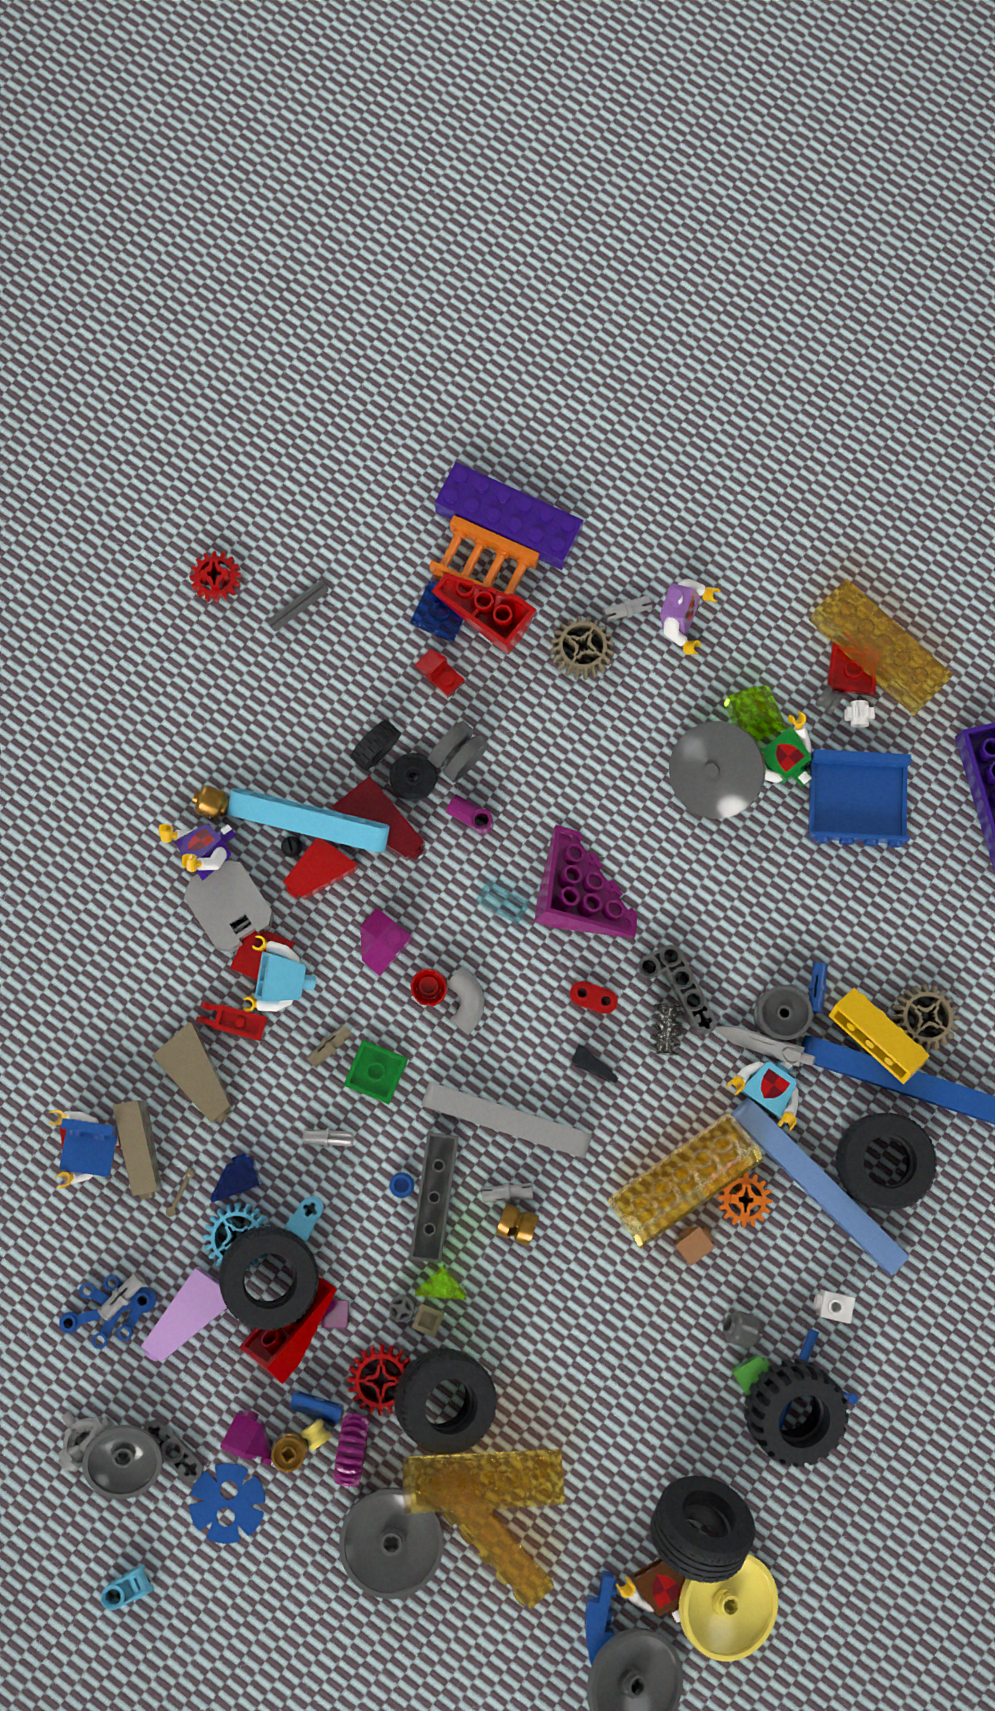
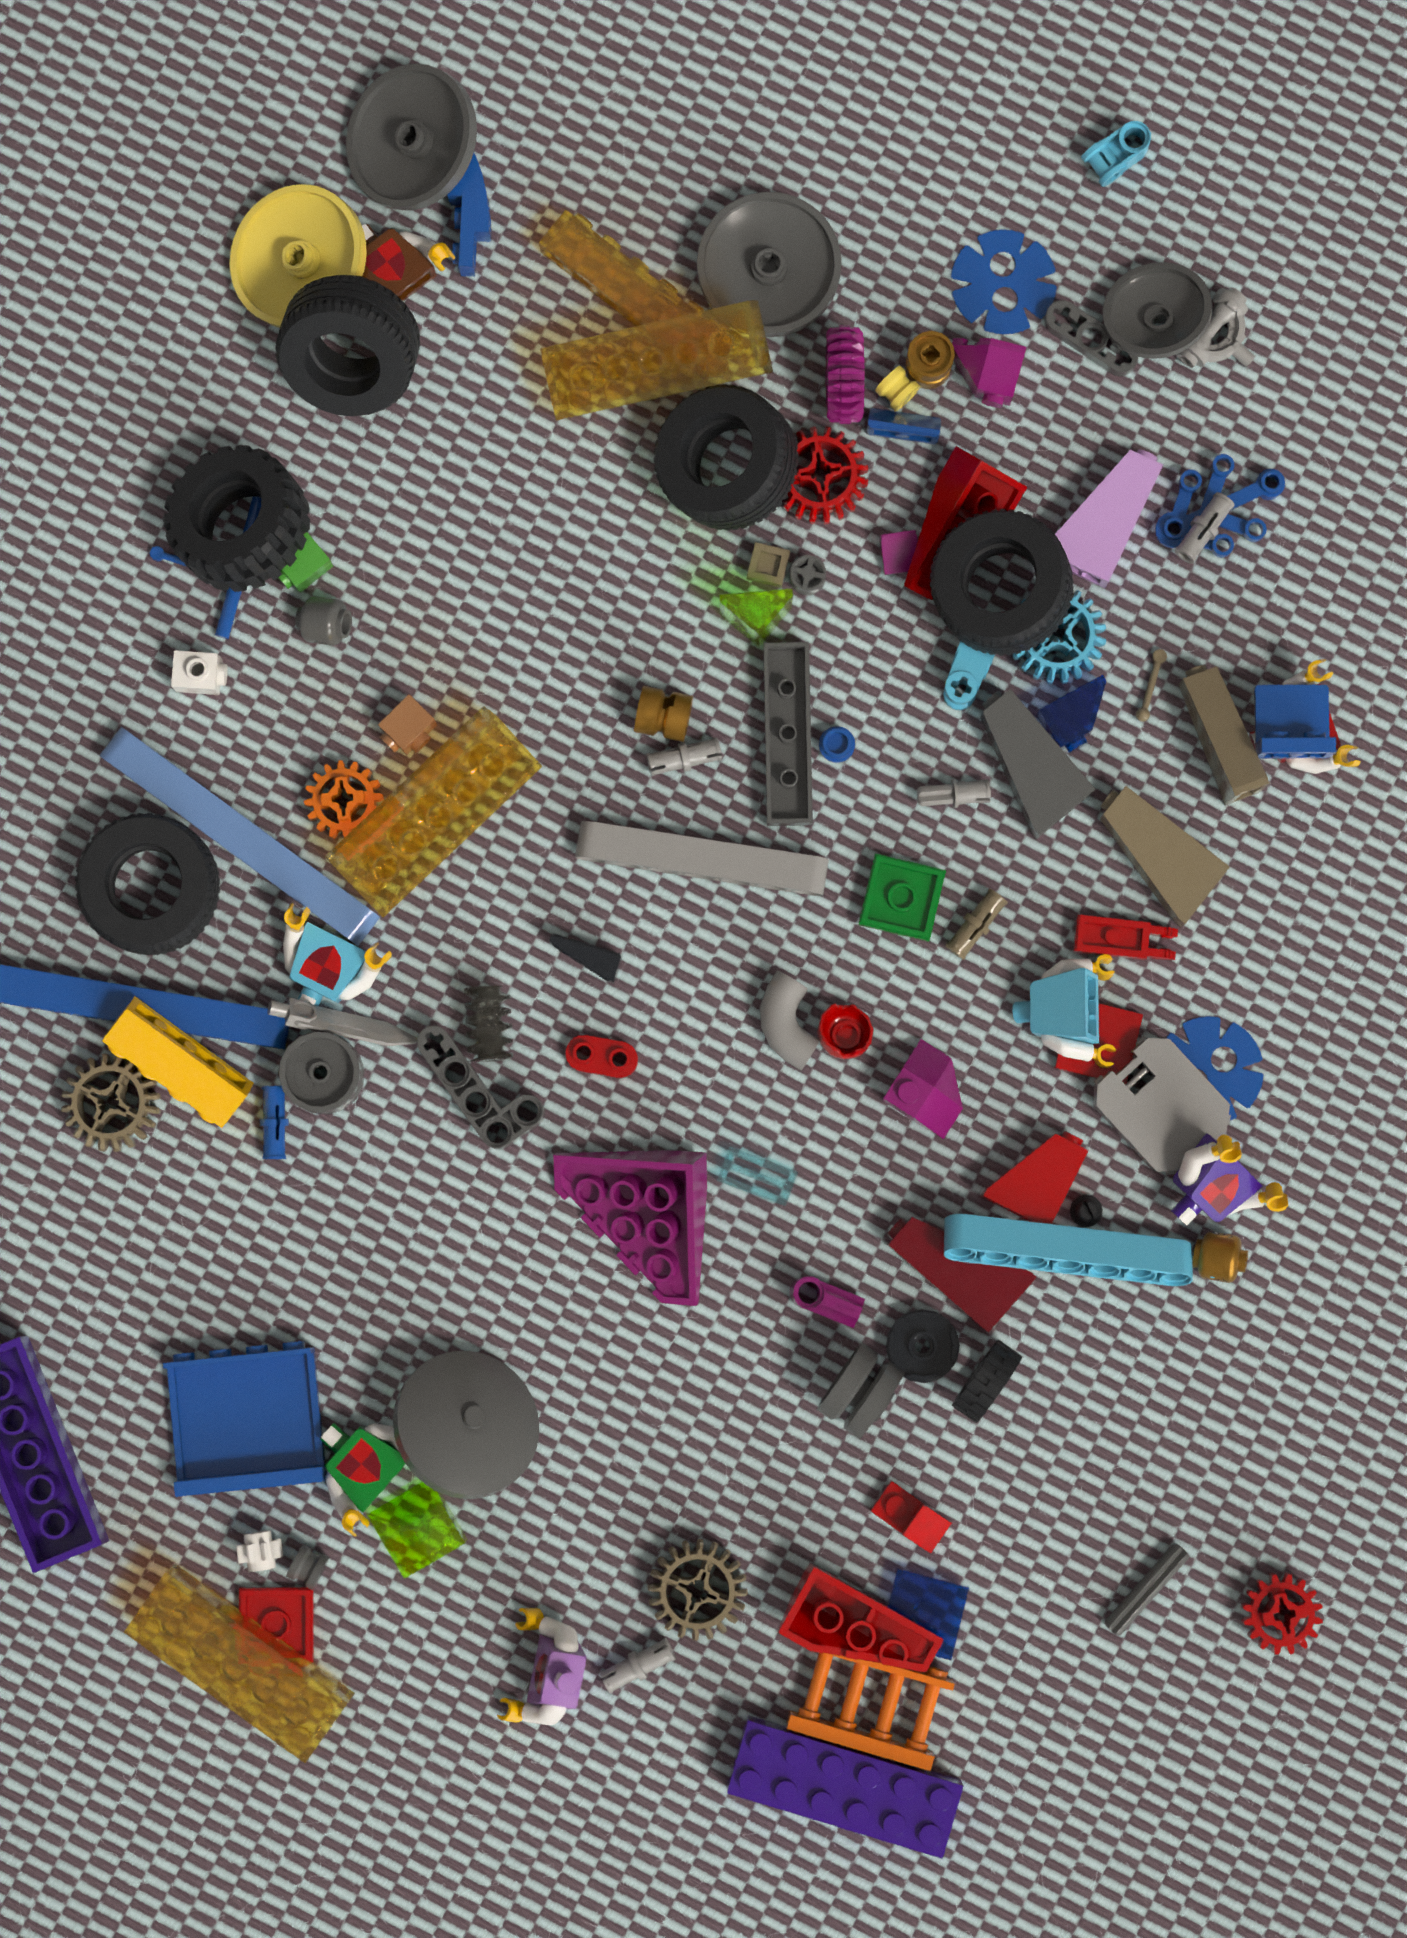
camera: 175 degrees right, 5 degrees up
(192, 946) = (1204, 1040): none -> blue piece
(269, 1145) = (1034, 764): none -> dark grey slope

